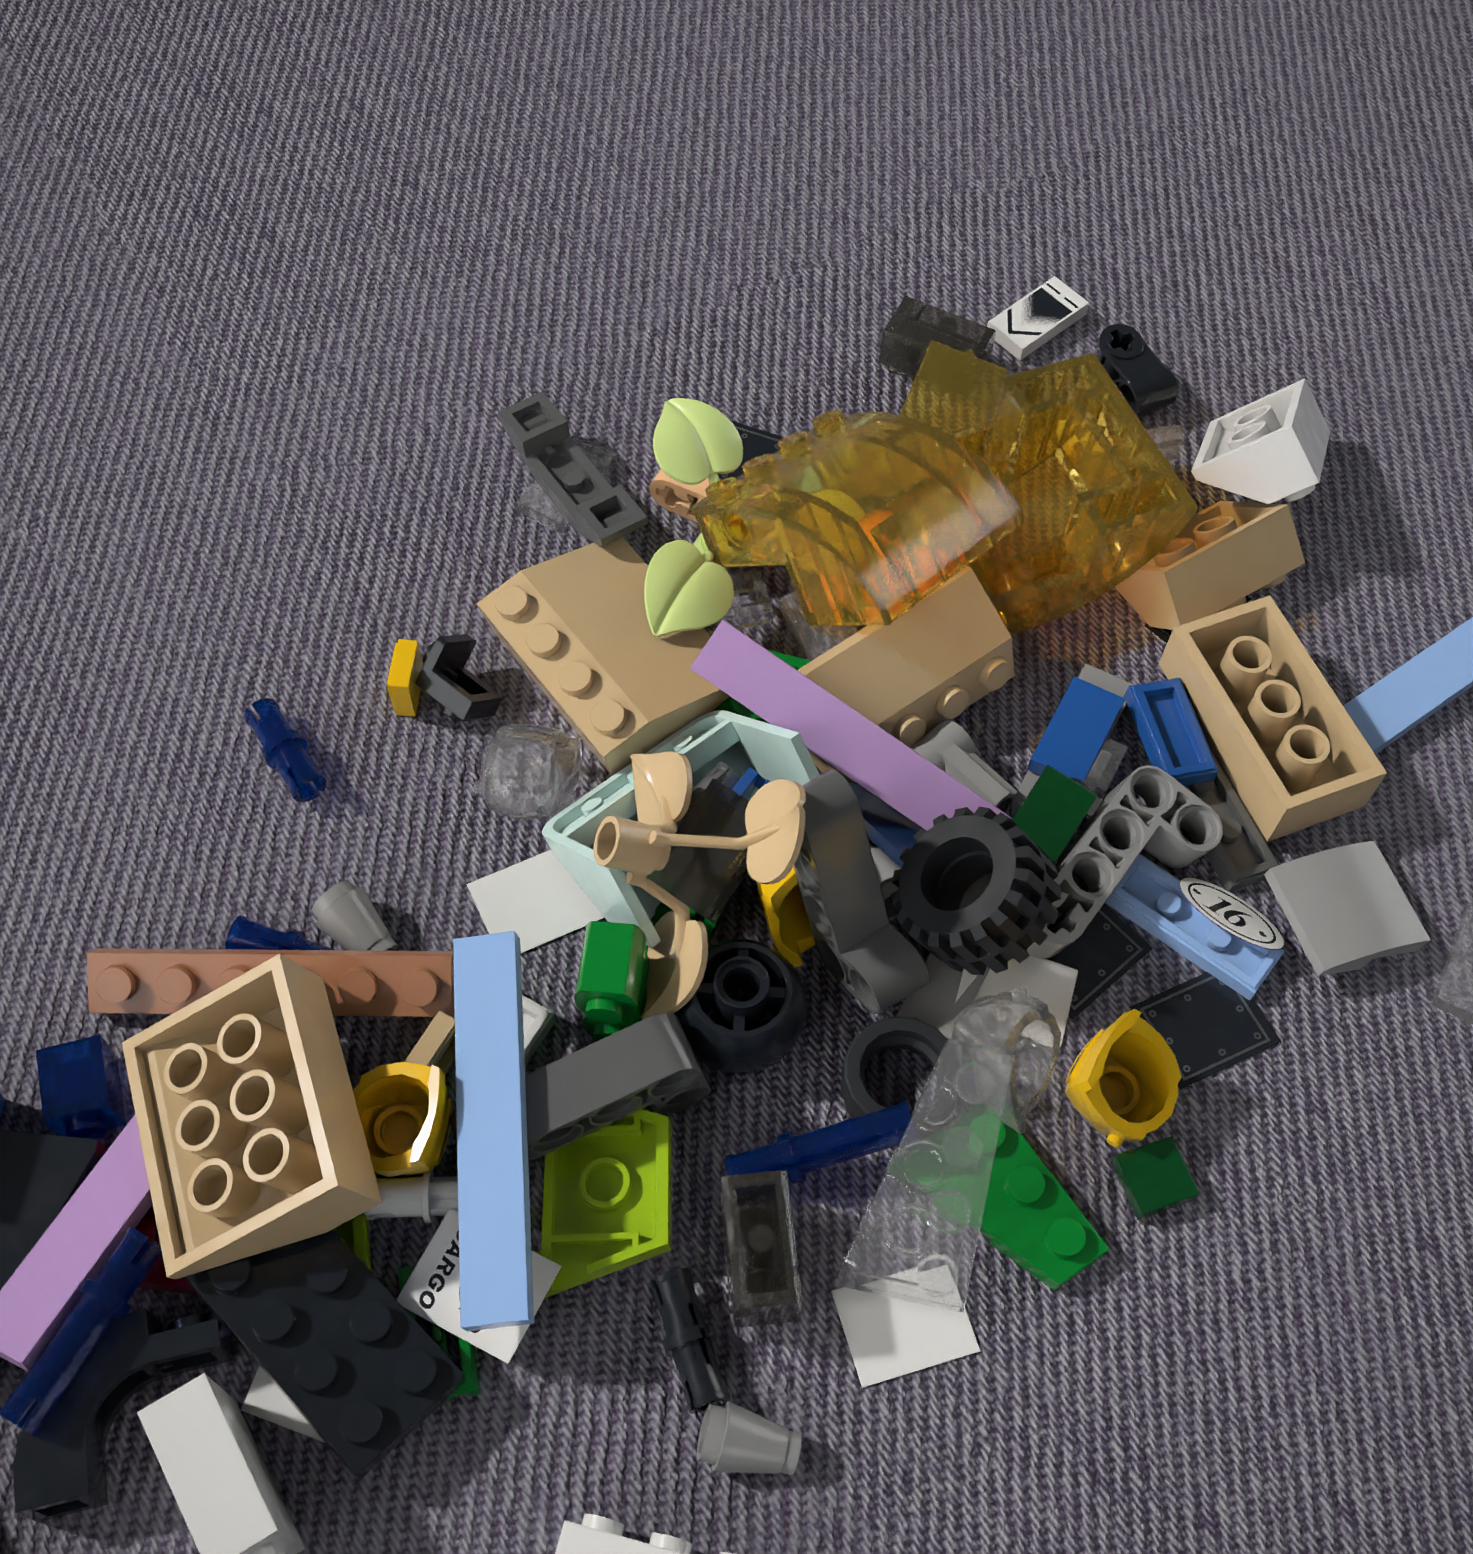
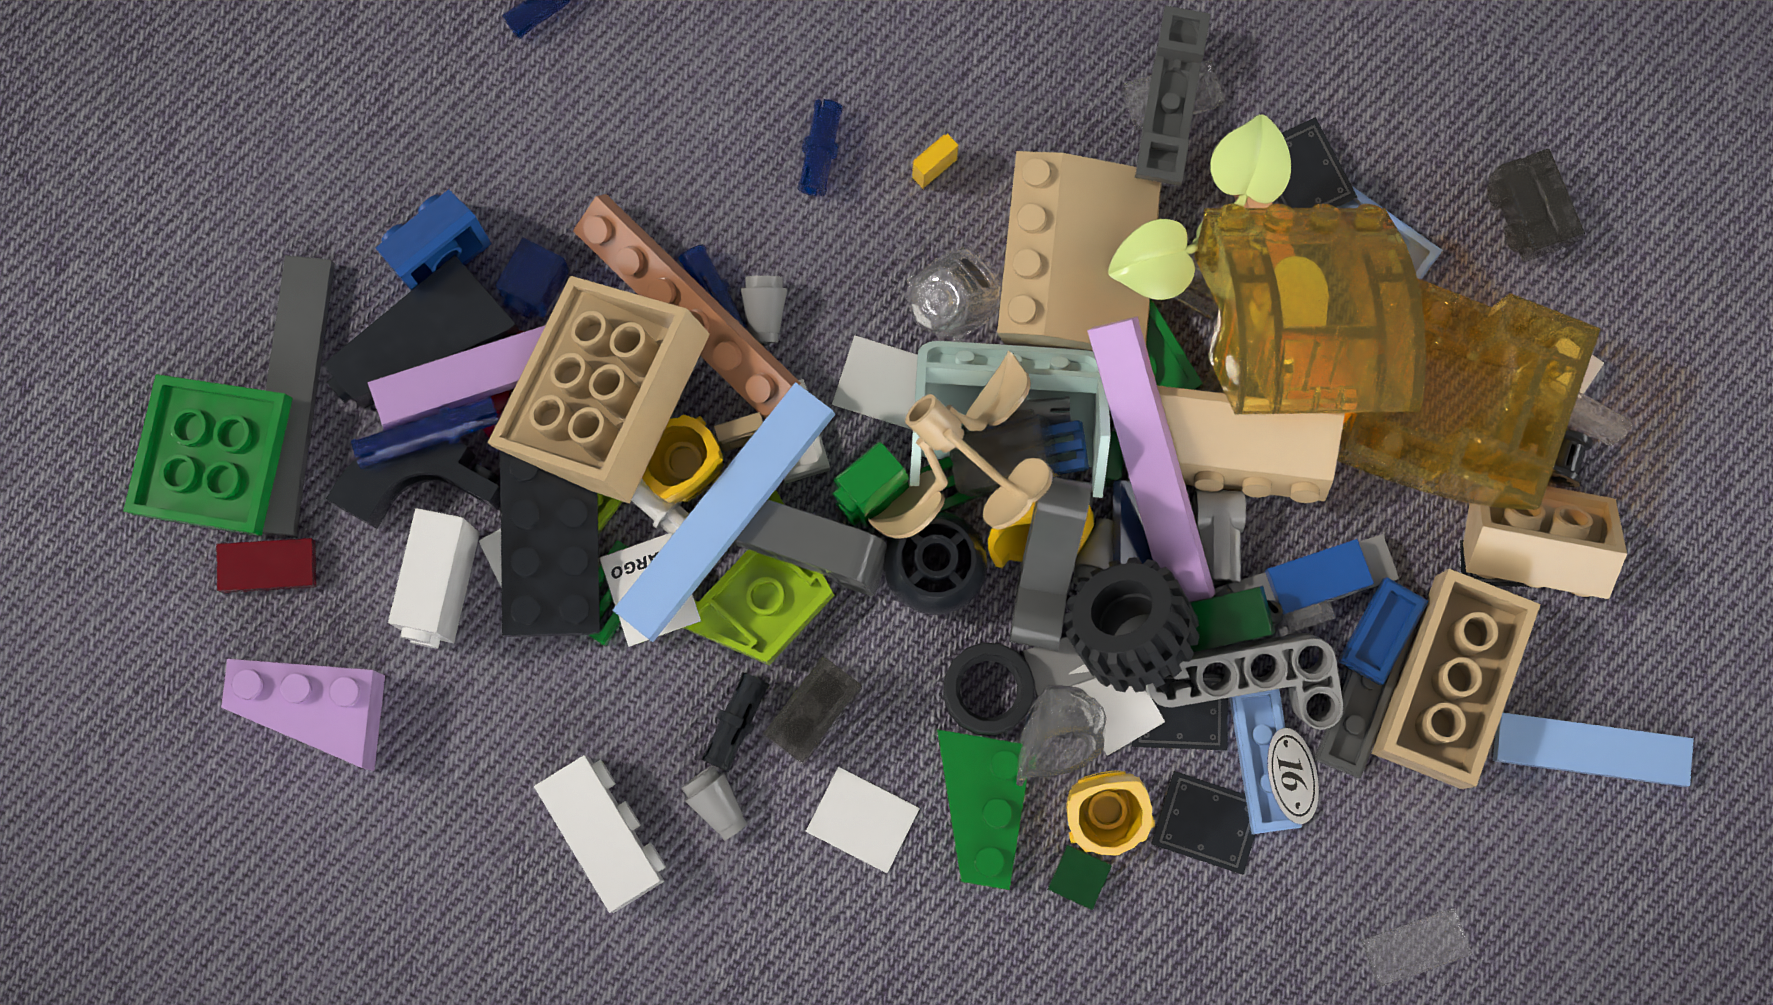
camera: 45 degrees right, 20 degrees up
(452, 685) = (960, 192): black bracket -> none
(825, 1145) = (884, 678): clear blue pin -> none
(931, 1202) = (931, 772): clear wing -> none
(952, 389) = (1501, 256): clear yellow piece -> none
(1038, 317) = (1643, 241): white tile -> none
(1136, 372) = (1654, 358): black piece -> none
(1266, 447) = (1672, 495): white slope -> none
(1346, 907) = (1369, 838): light grey slope -> none

